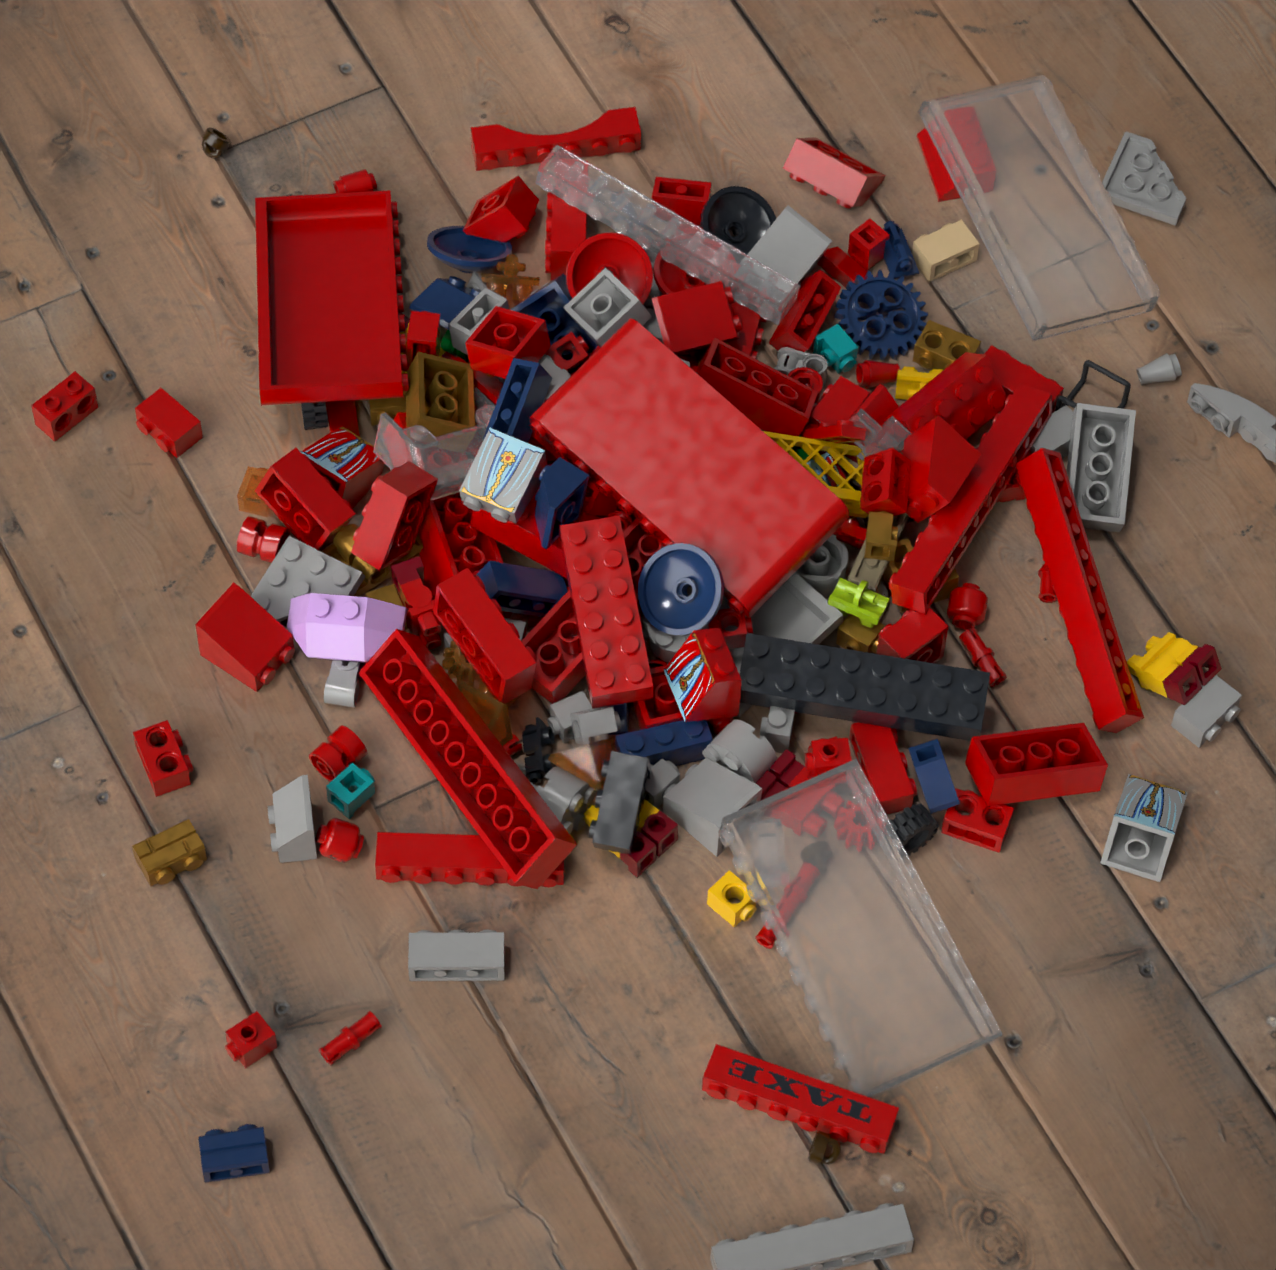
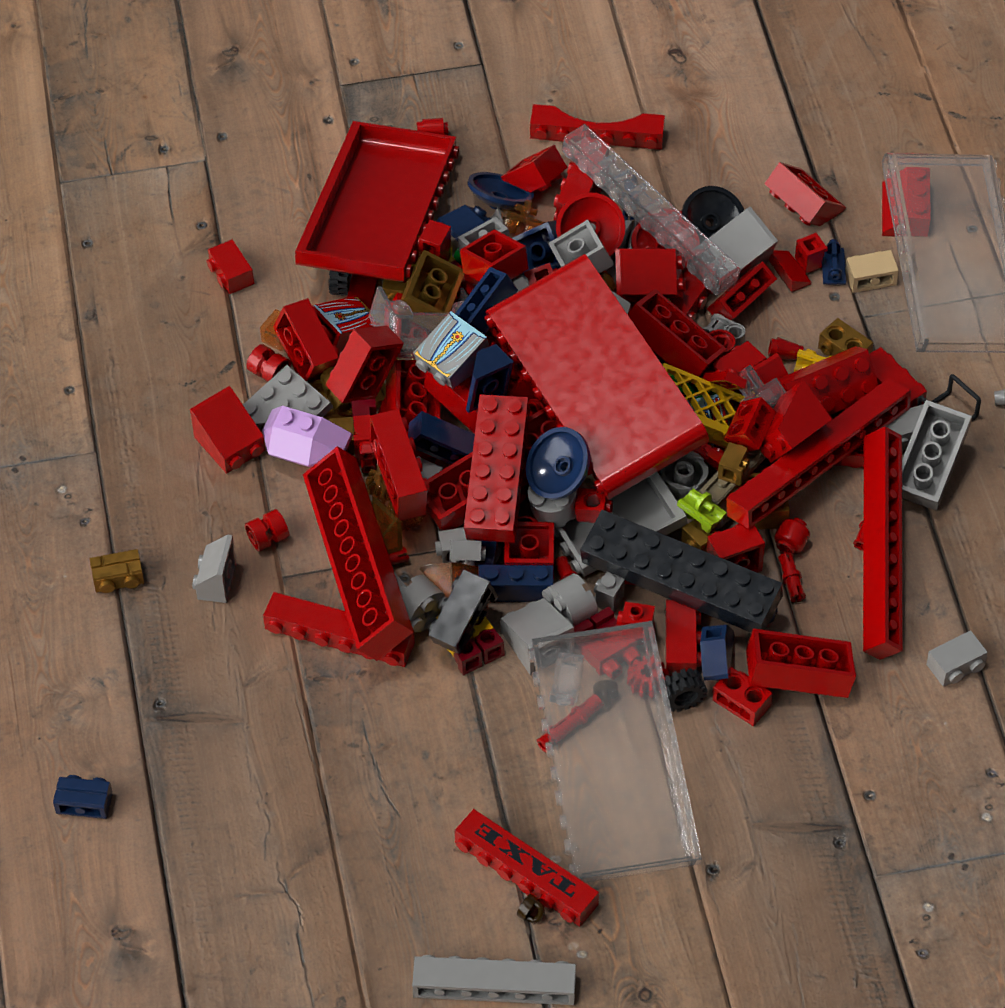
camera: 20 degrees right, 5 degrees down
(64, 406) = (158, 238): red brick -> none
(160, 758) = (136, 502): red brick -> none
(215, 139) = (341, 75): dark brown tile -> none
(250, 1040) = (125, 719): red brick -> none
(339, 840) = (244, 591): red head -> none
(343, 683) = (289, 481): light grey piece -> none
(350, 780) = (267, 558): teal brick -> none
(350, 1038) = (200, 736): red pin -> none
(456, 956) = (302, 697): light grey brick -> none
(538, 740) = (421, 555): black hinge -> none
(662, 776) = (504, 604): light grey brick -> none
(682, 196) = (675, 186): red brick -> none
(705, 677) = (557, 535): red slope -> none
(731, 887) = (522, 700): yellow brick -> none
(836, 348) = (758, 324): teal brick -> none
(873, 293) = (801, 288): dark blue gear -> none
(1143, 828) = (873, 733): light grey slope -> none
(1174, 664) = (941, 616): hips -> none

